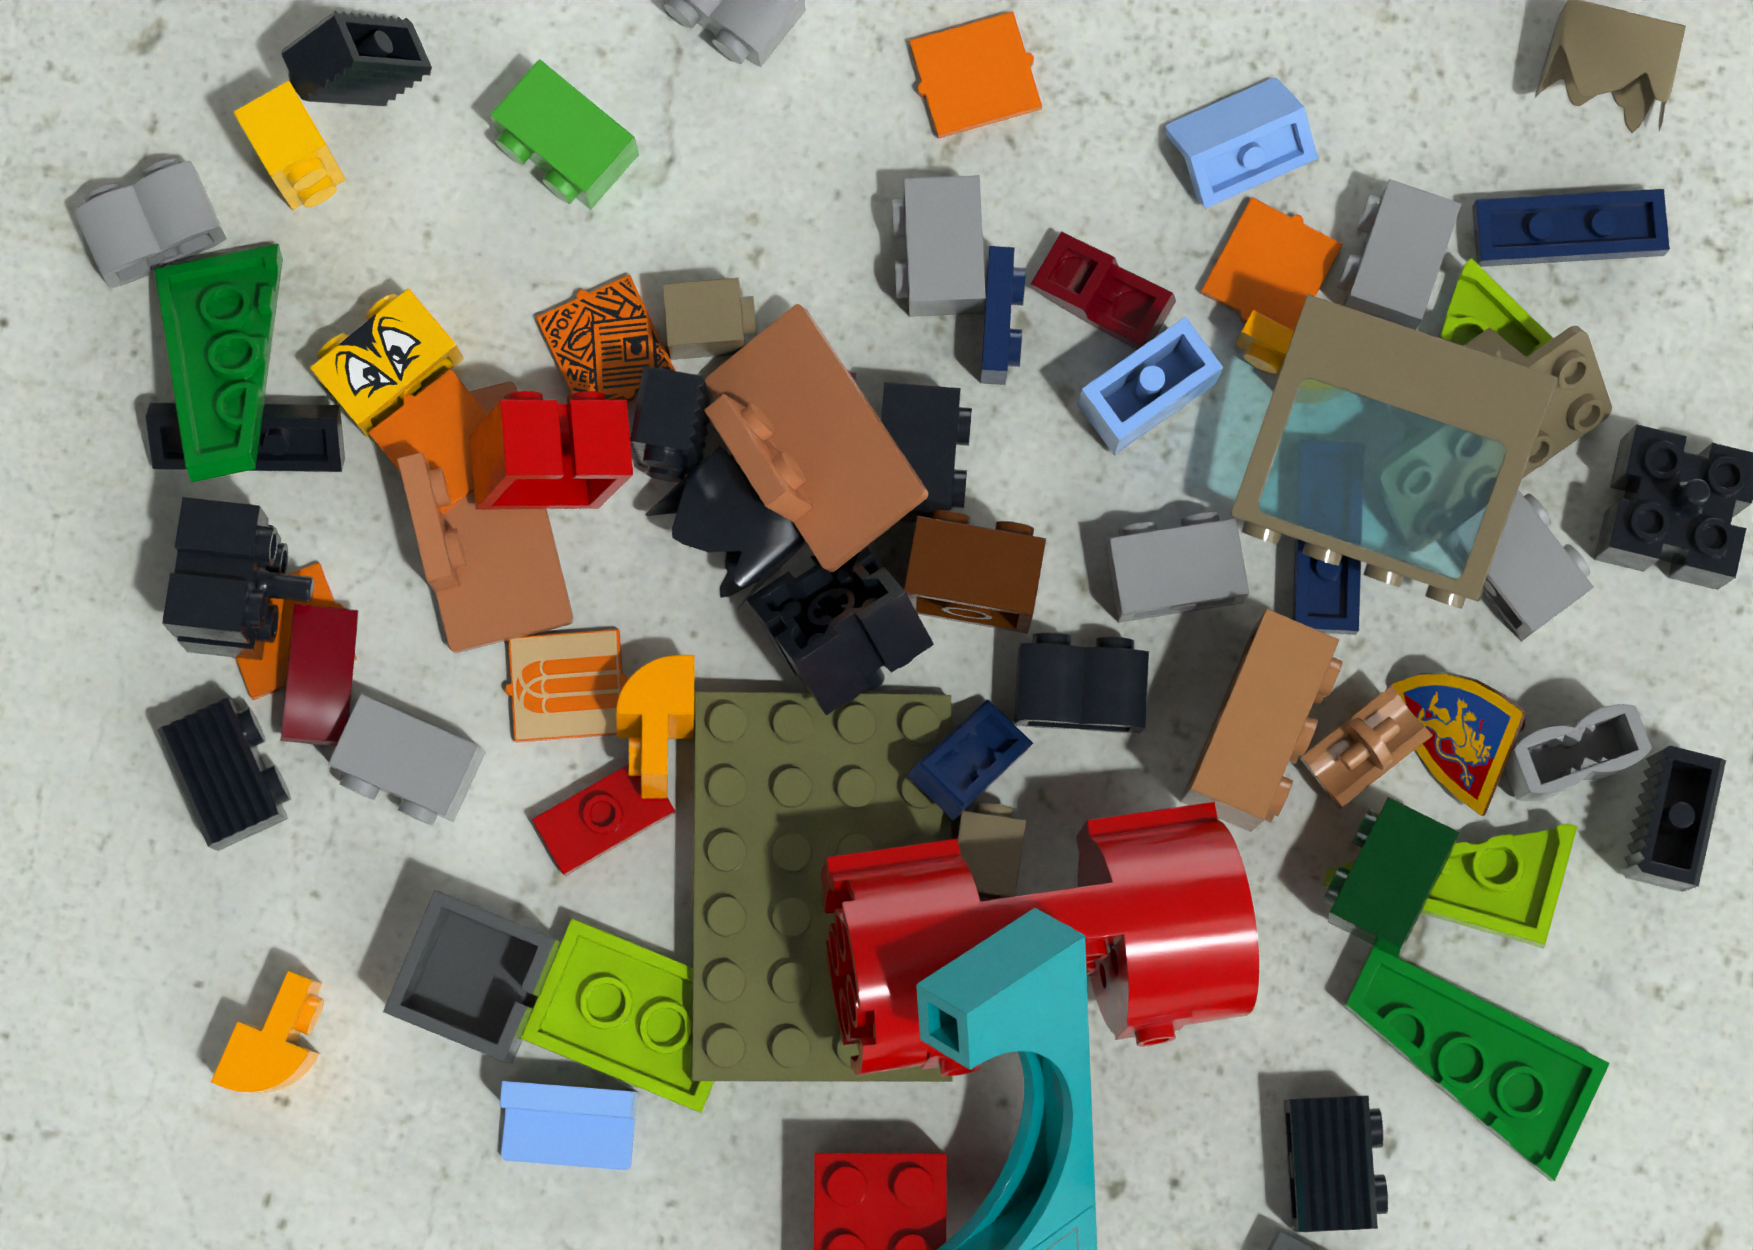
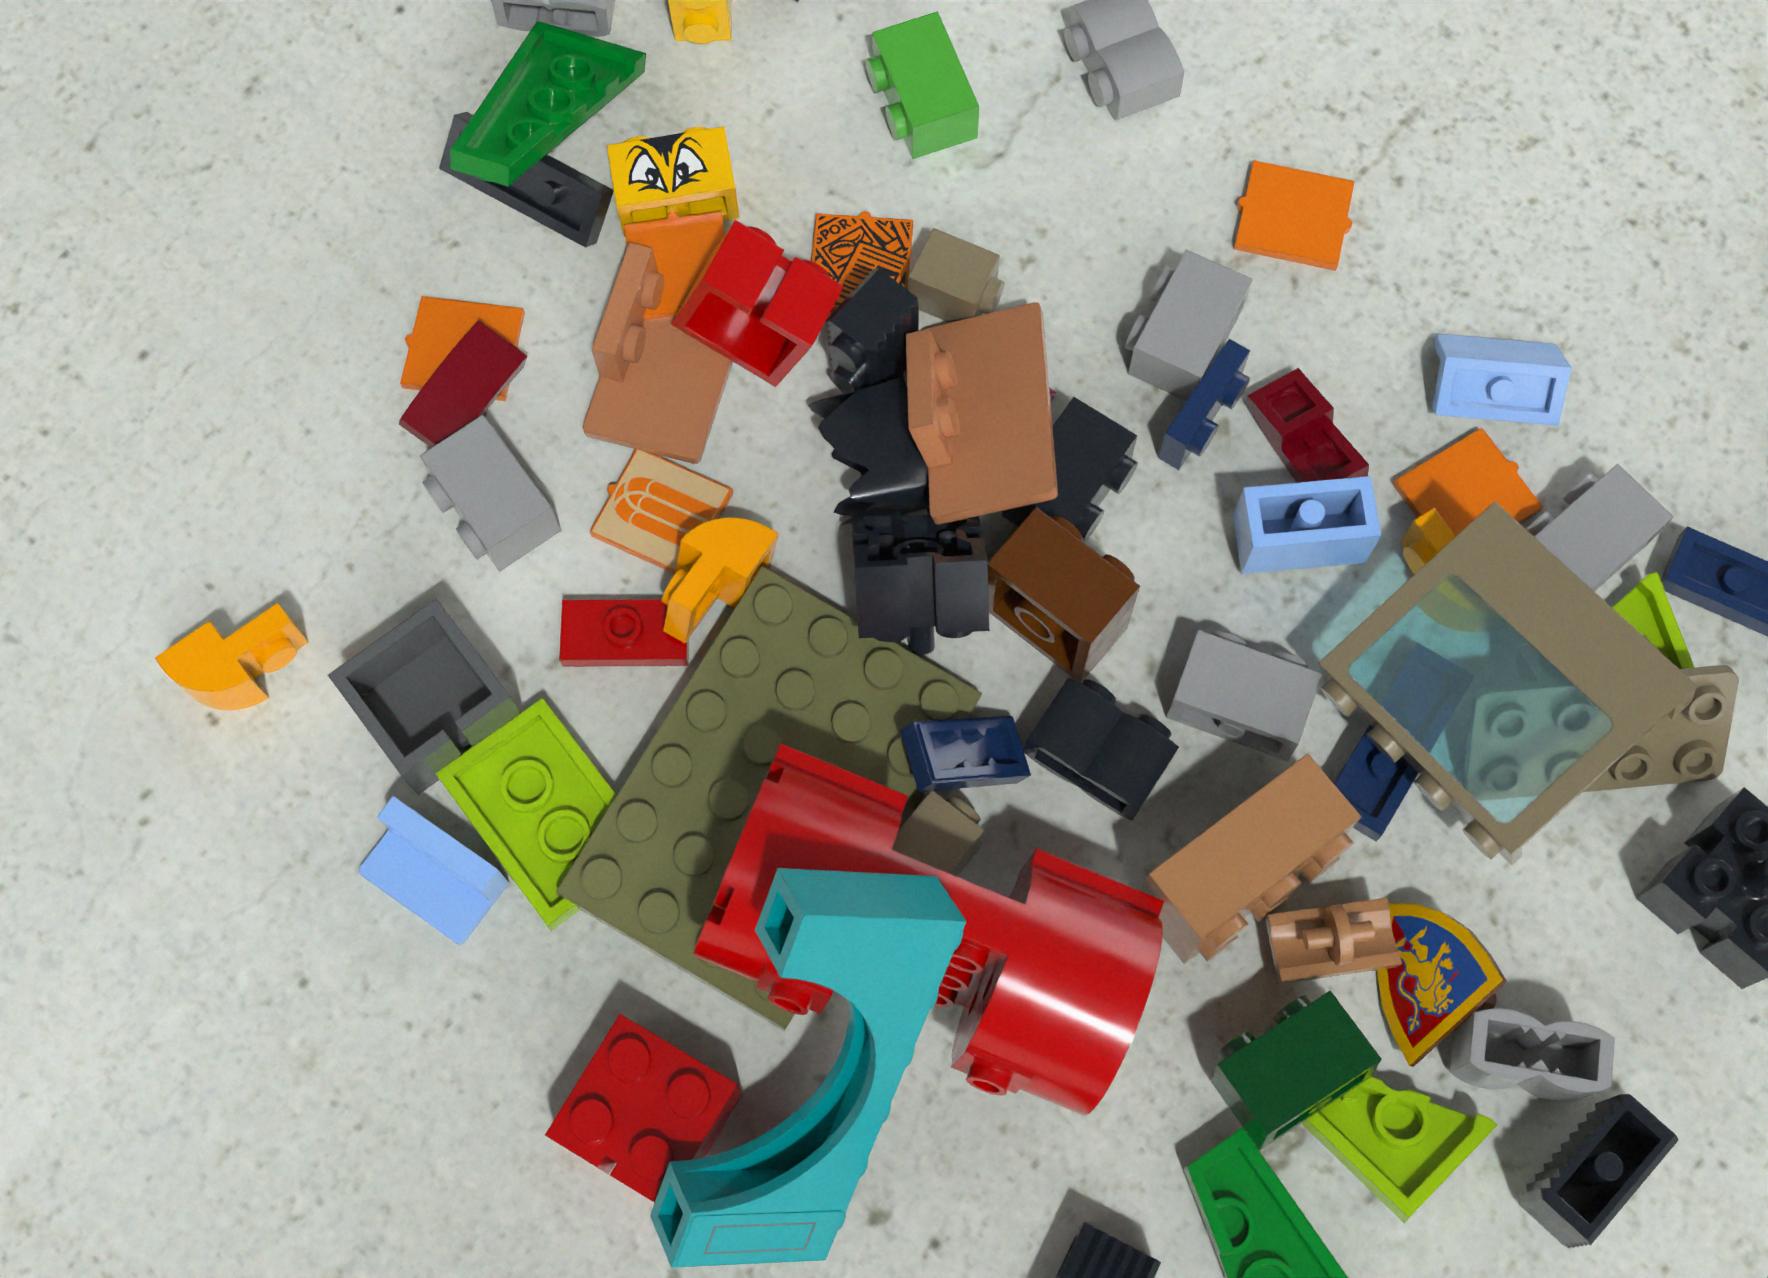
camera: 30 degrees right, 10 degrees down
(224, 579) = (432, 266): black brick -> none
(225, 773) = (337, 425): black brick -> none
(1532, 571) = (1571, 869): light grey brick -> none

